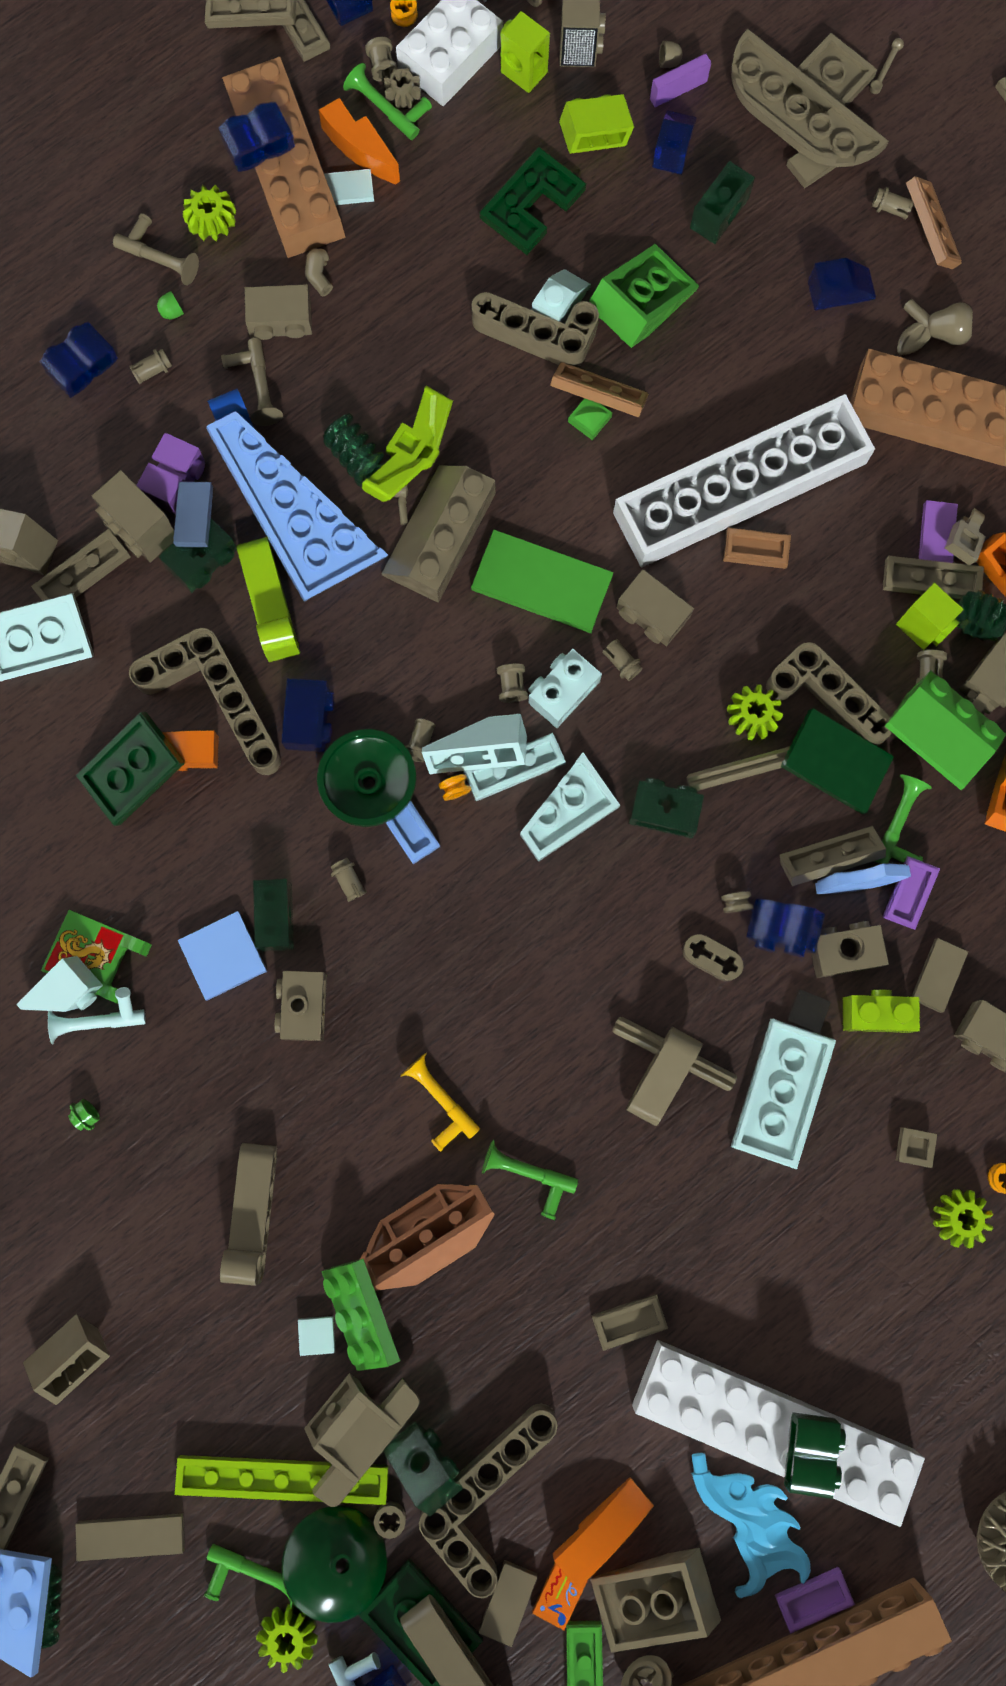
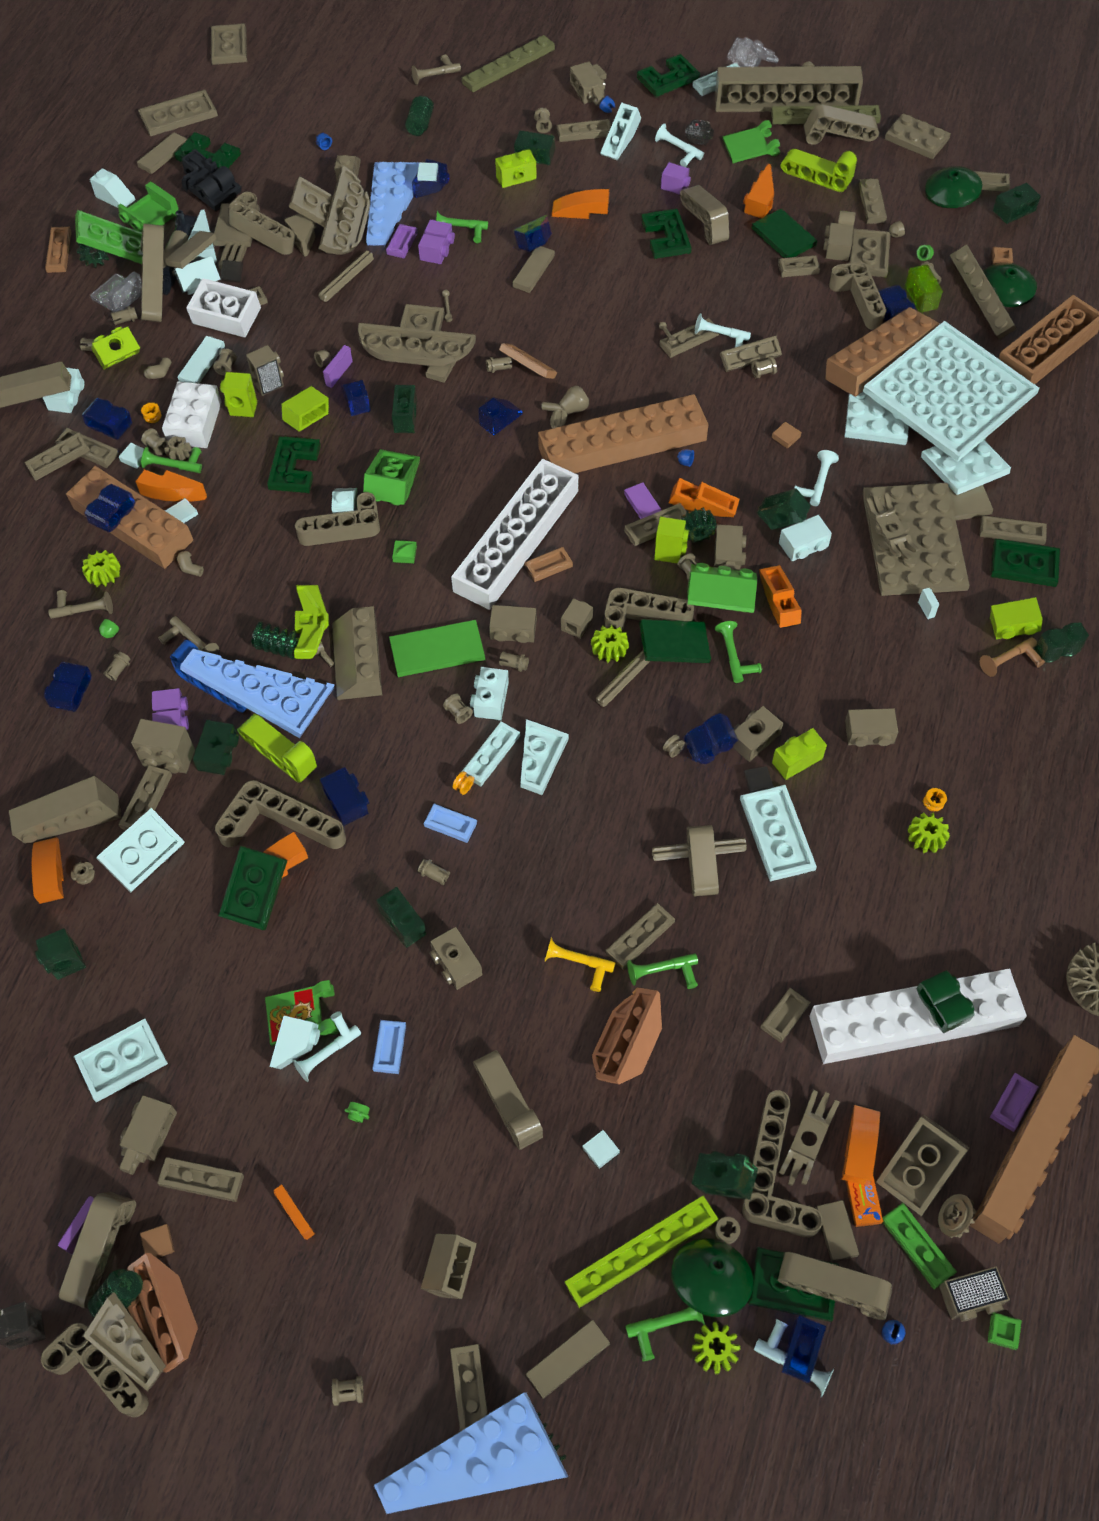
camera: 30 degrees left, 20 degrees down
(166, 1060) = (389, 1046): none -> light blue tile
(193, 514) = (200, 723): sand blue tile -> none
(222, 955) = (384, 963): light blue tile -> none
(278, 311) = (179, 595): dark tan brick -> none
(342, 62) = (132, 455): none -> light aqua tile
(354, 1432) = (666, 1185): dark tan plate -> none
(360, 1316) = (620, 1110): bright green plate -> none
(362, 757) = (405, 794): dark green dish -> none
(420, 737) = (425, 775): dark tan pin -> none
(483, 745) = (462, 750): light aqua slope -> none
(529, 1489) = (818, 1126): none -> dark tan piece
(531, 1115) = (640, 936): none -> dark tan tile
(599, 389) = (400, 534): medium nougat tile -> none
(648, 808) = (596, 721): clear green brick -> none
(717, 951) = (682, 784): dark tan beam -> none
(739, 650) = (577, 618): none -> dark tan brick
(758, 1522) = (947, 1079): medium azure piece -> none
(832, 856) = (709, 690): dark tan plate -> none
(862, 879) = (736, 691): light blue tile -> none
(911, 894) = (767, 684): medium lavender tile -> none
(916, 1147) = (873, 812): dark tan plate -> none
(939, 975) = (816, 716): dark tan tile -> none
(965, 539) = (661, 495): dark tan plate -> none

